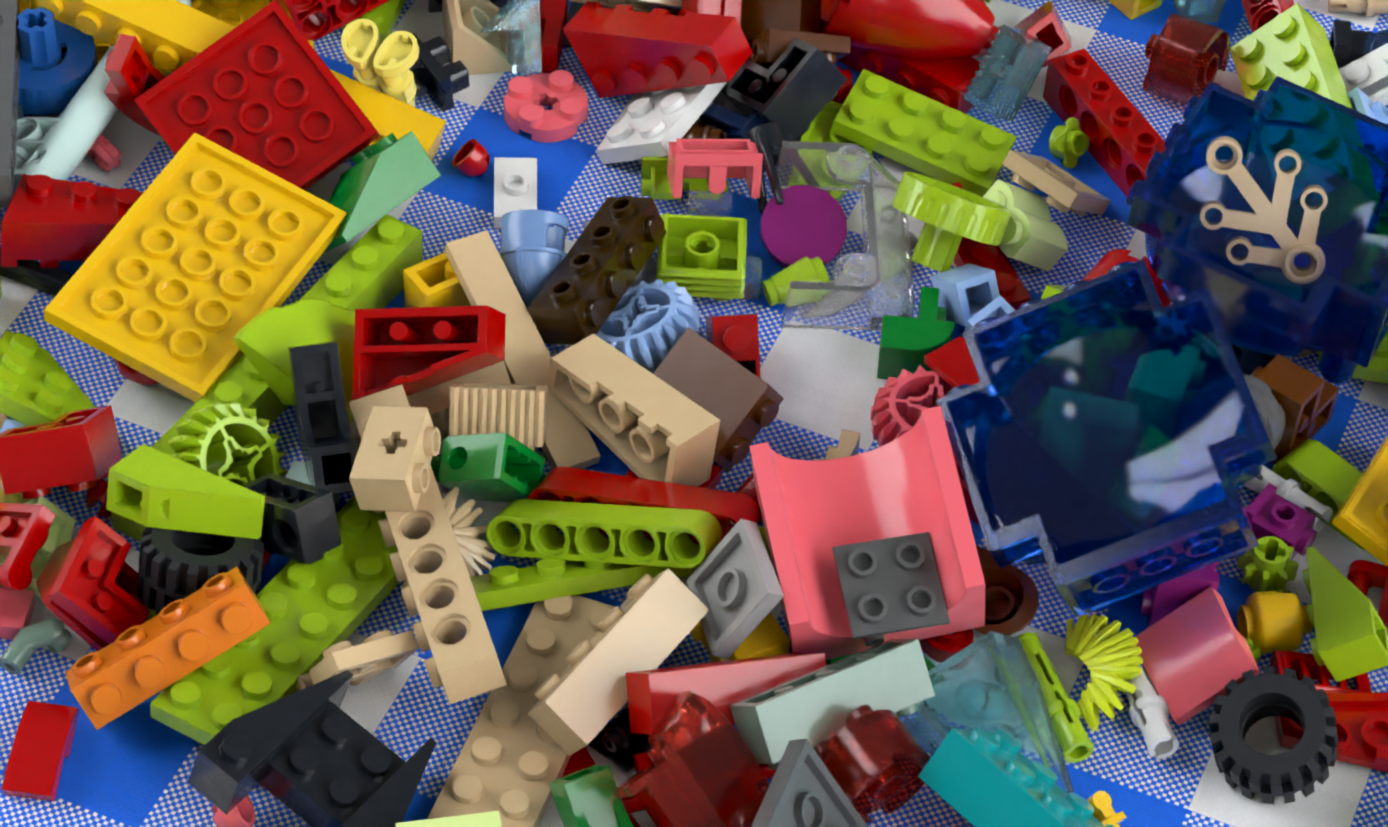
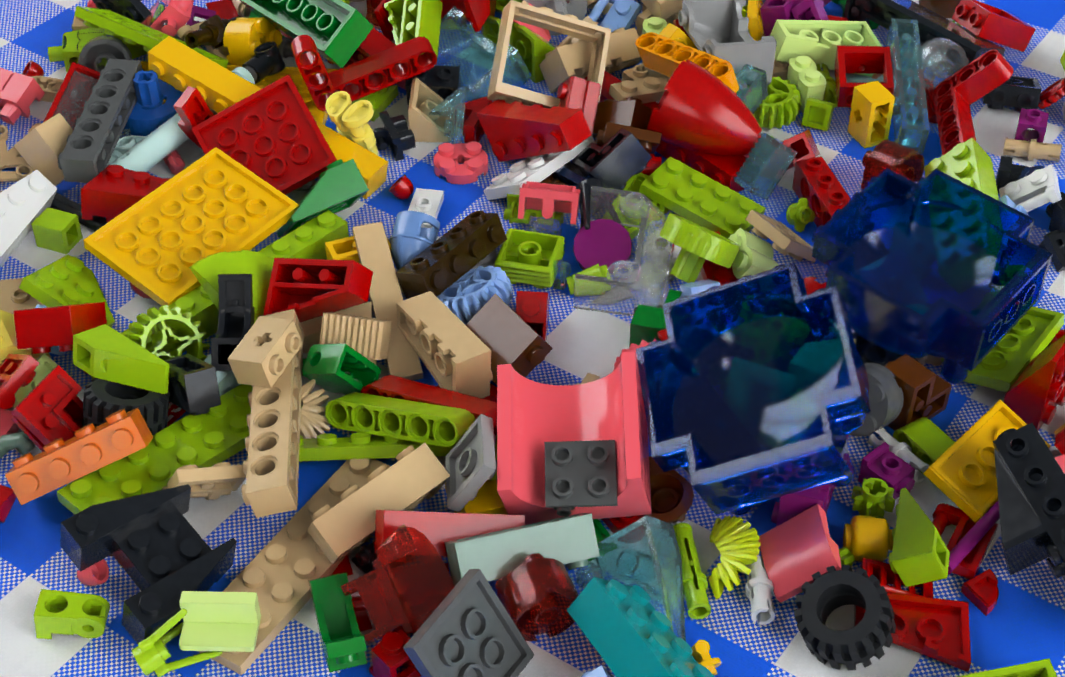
camera: 15 degrees right, 5 degrees down
(1268, 216) = (917, 262): tan plant -> none

